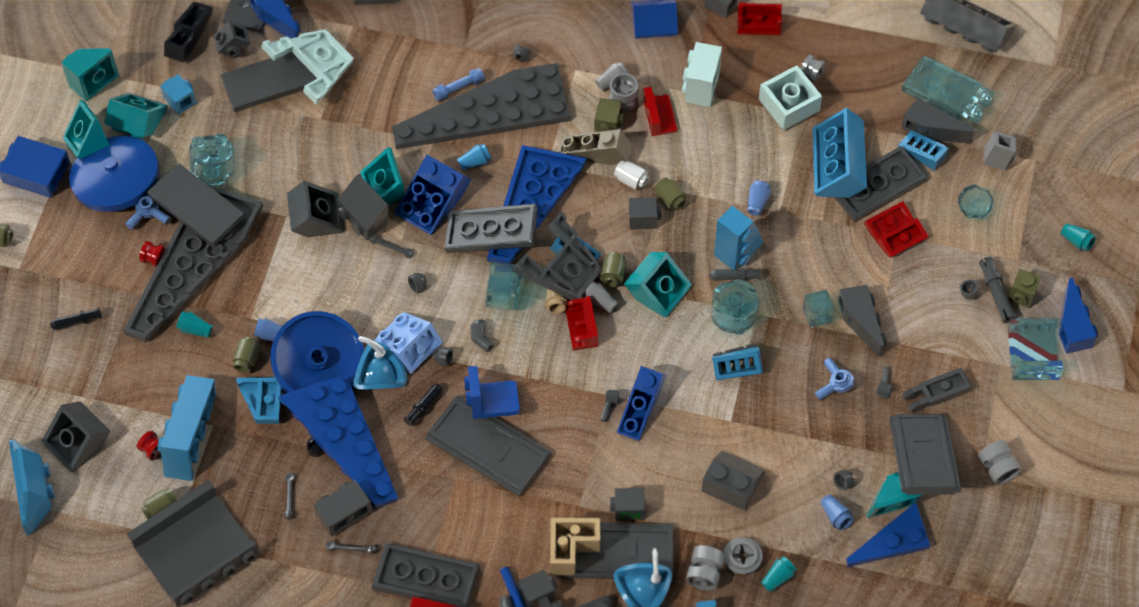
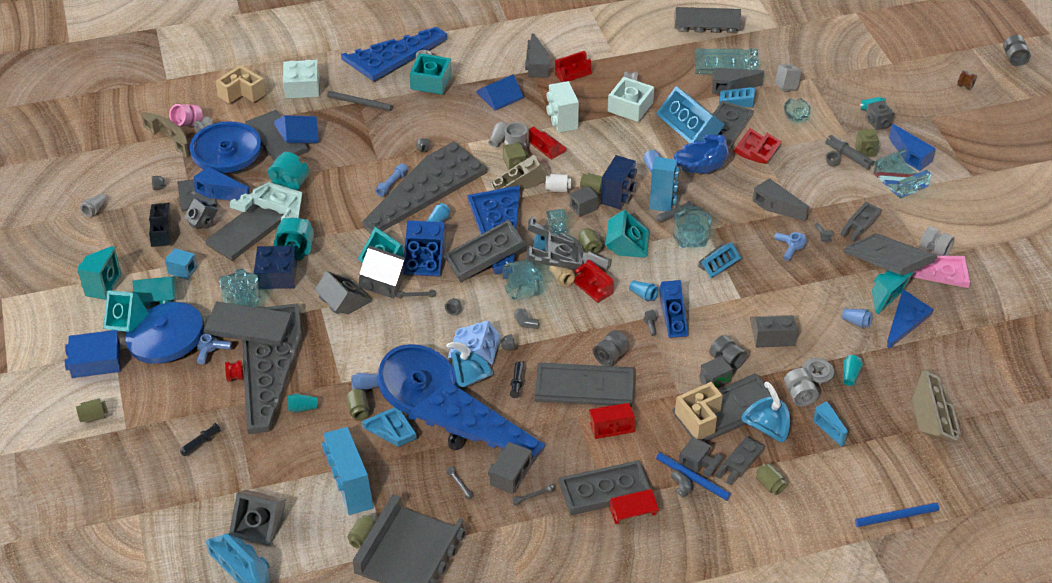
camera: 30 degrees left, 15 degrees down
(149, 444) = (326, 495): red wheel -> none
(266, 145) = (276, 267): none -> dark blue brick
(304, 118) = (295, 233): none -> teal brick
(349, 27) = (288, 171): none -> teal brick
(482, 504) = (612, 420): none -> red hinge
(490, 398) = (564, 352): blue bracket -> none
(541, 417) = (611, 348): none -> flat silver wheel
(592, 229) = (557, 221): none -> clear light blue brick
(628, 361) = (645, 290): none -> dark azure cone
(658, 486) = (731, 352): none -> dark grey wheel
(692, 208) = (618, 182): none -> dark blue brick
(813, 216) = (703, 155): none -> blue hair
(818, 308) = (747, 206): clear light blue brick -> none
(838, 480) = (848, 300): dark grey hinge -> none
(983, 500) = (945, 270): none -> bright pink wing
(1069, 256) = (879, 115): none -> dark grey brick

